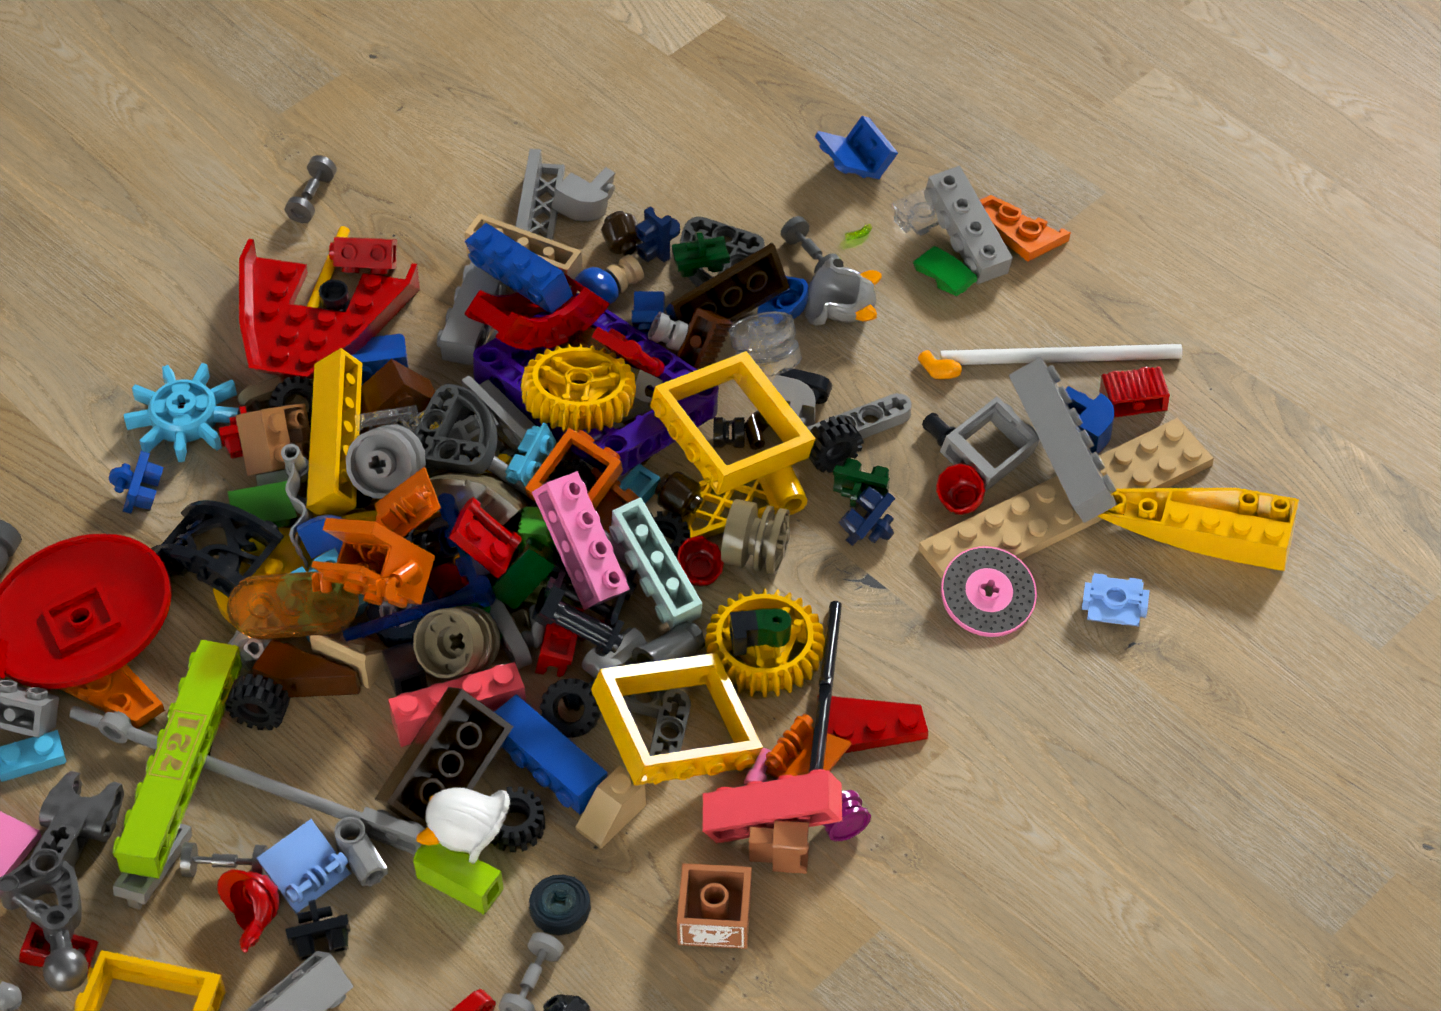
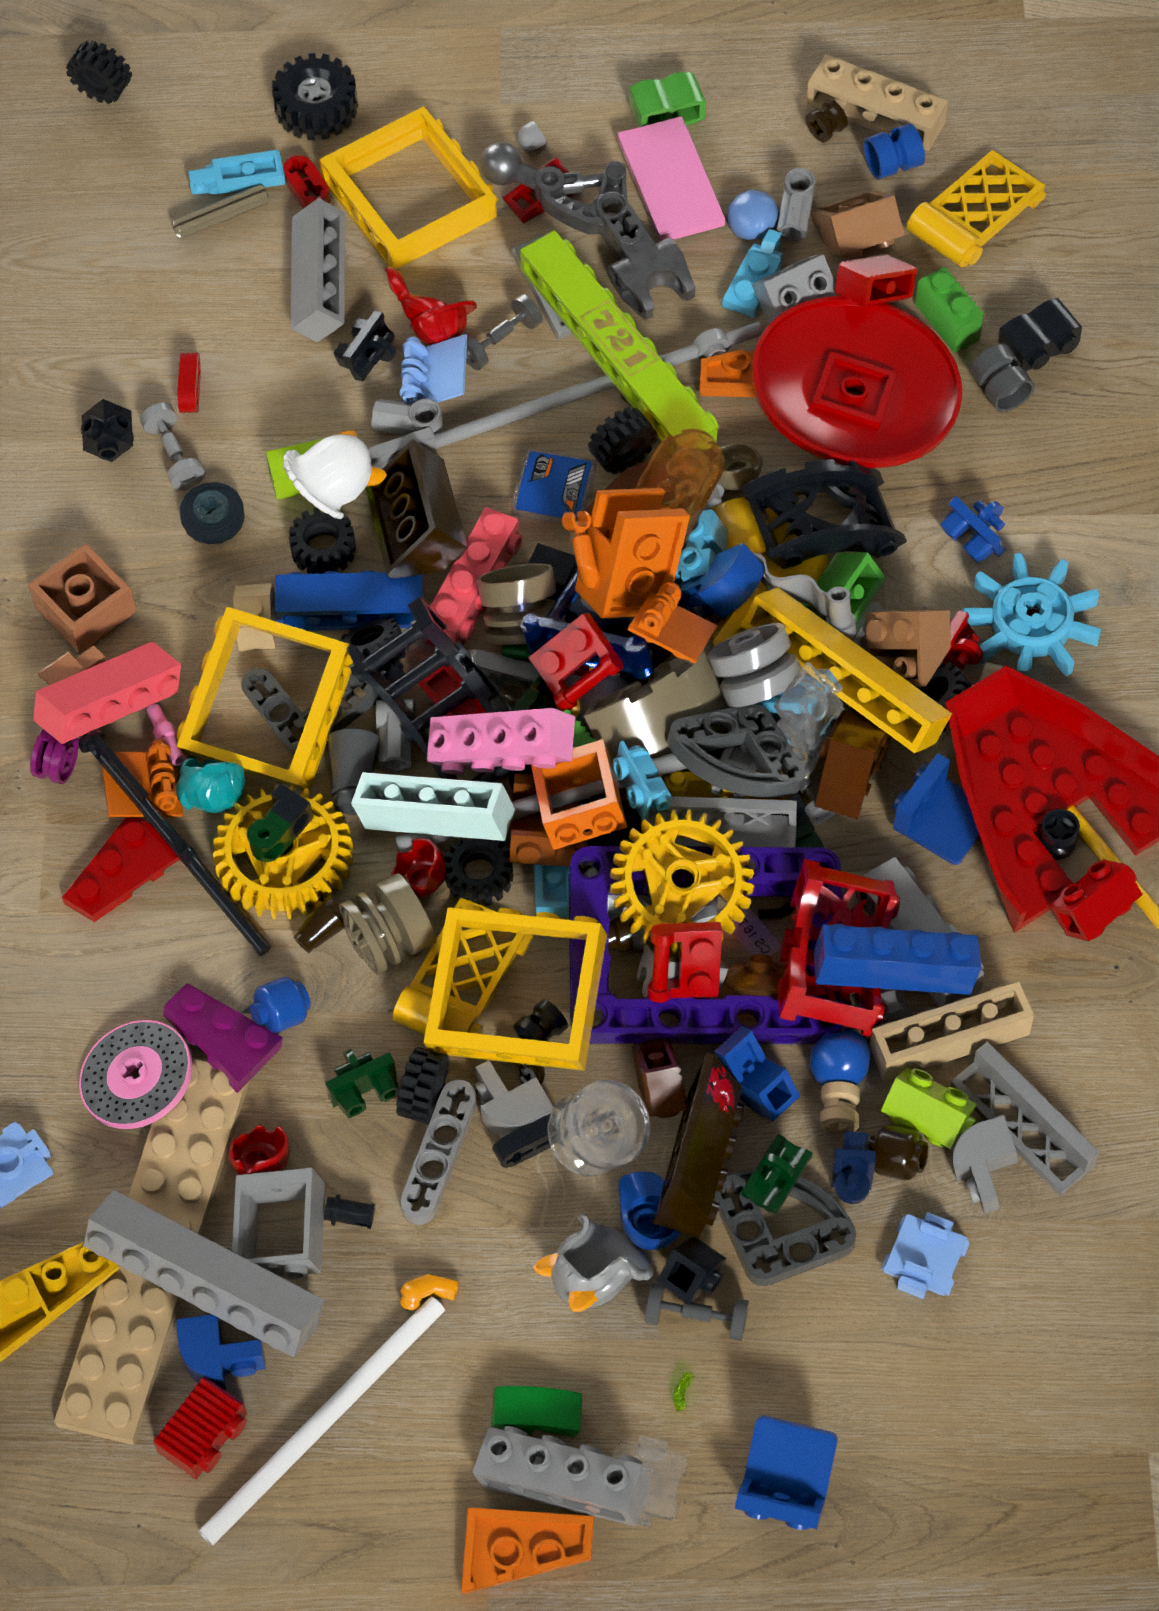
camera: 135 degrees right, 10 degrees up
(210, 627) = (741, 465): none -> dark tan hair
(329, 726) = (553, 485): none -> slope
(581, 230) = (929, 1107): none -> lime brick
(666, 191) = (925, 1255): none -> light blue piece
(668, 331) = (694, 1043): light grey wheel -> none
(678, 494) = (506, 897): dark brown head -> none
(767, 706) = (210, 786): none -> teal hair
(787, 582) = (320, 925): none -> dark brown cone
(797, 257) = (692, 1270): none -> black brick
(859, 526) = (309, 1047): dark blue hips -> none
(863, 558) = (280, 1004): none -> blue head
(913, 571) = (224, 1035): none -> magenta wing

